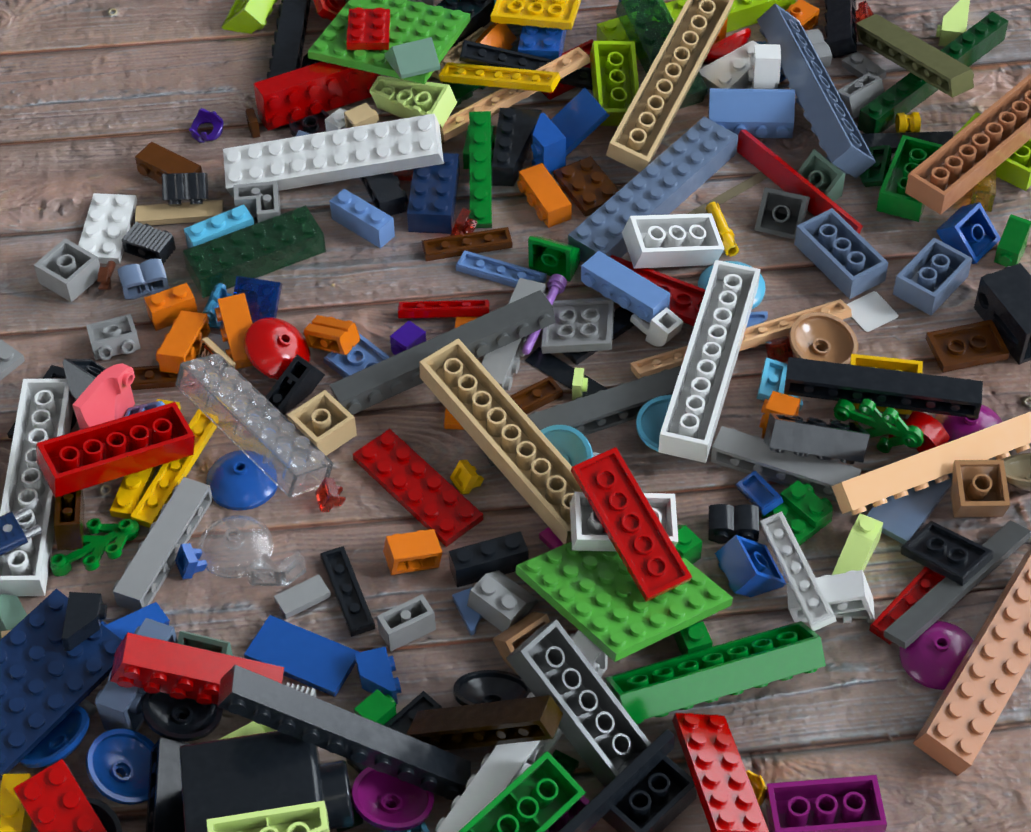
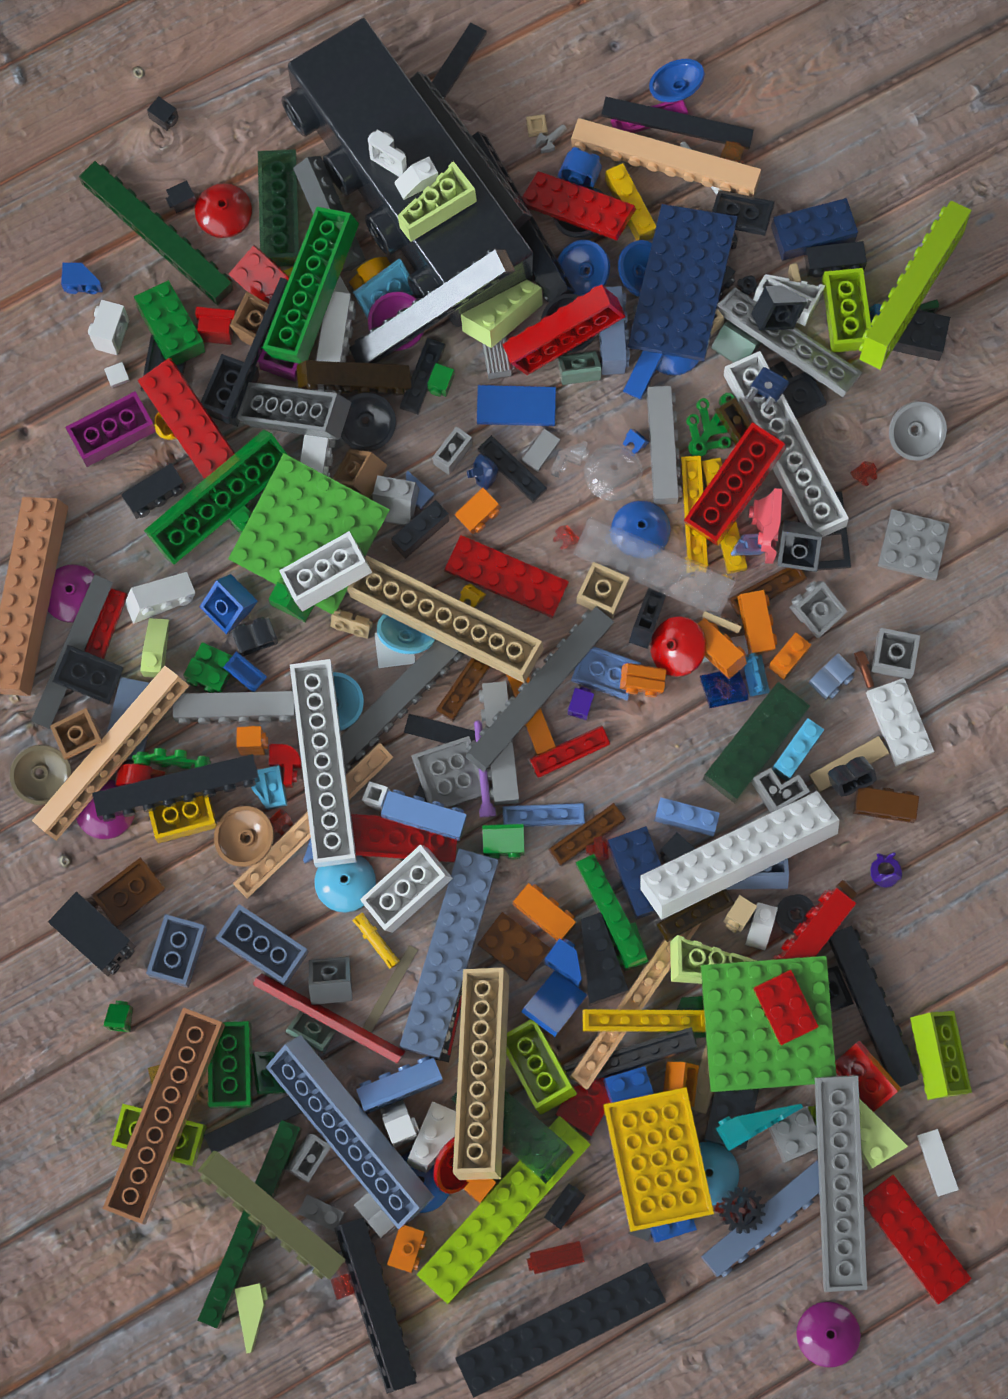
camera: 155 degrees right, 25 degrees up
(82, 618) = (667, 337): black slope -> none
(148, 242) = (851, 715): black brick -> none
(376, 671) = (454, 407): blue slope -> none
(382, 588) = (484, 471): none -> dark blue piece
(413, 58) = (720, 975): sand green slope -> none
(579, 383) = (424, 717): yellowish green plate -> none
(631, 524) = (315, 556): red plate -> none
(747, 398) = (286, 758): none -> red brick
(795, 722) = (154, 491): none -> black brick
(797, 571) = (190, 601): white tile -> none
(817, 438) = (211, 723): black wedge -> none
(871, 311) = (219, 904): white sticker -> none
(907, 123) = (255, 1145): yellow wheel -> none
(969, 231) = (158, 1021): blue slope -> none

